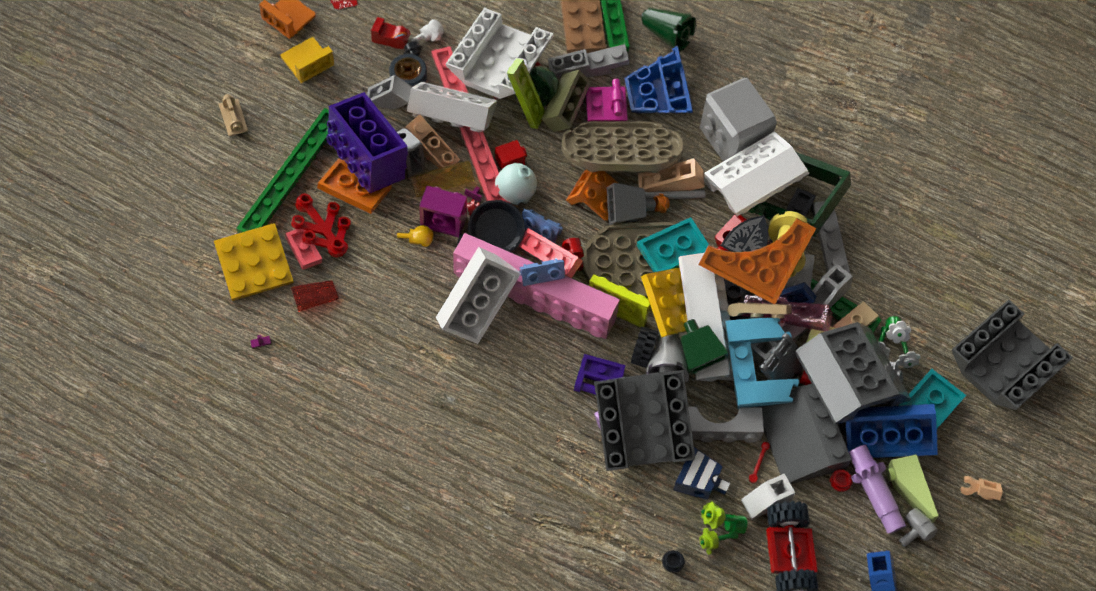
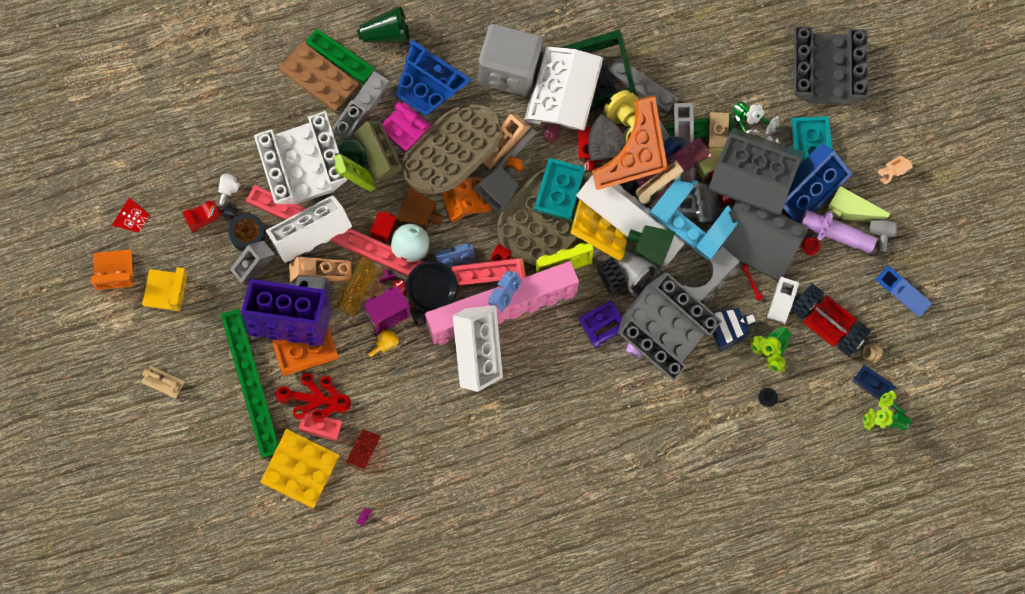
camera: 45 degrees left, 10 degrees up
(549, 168) = (418, 210): none -> reddish brown torso
(717, 207) = (552, 132): none -> clear pink cylinder

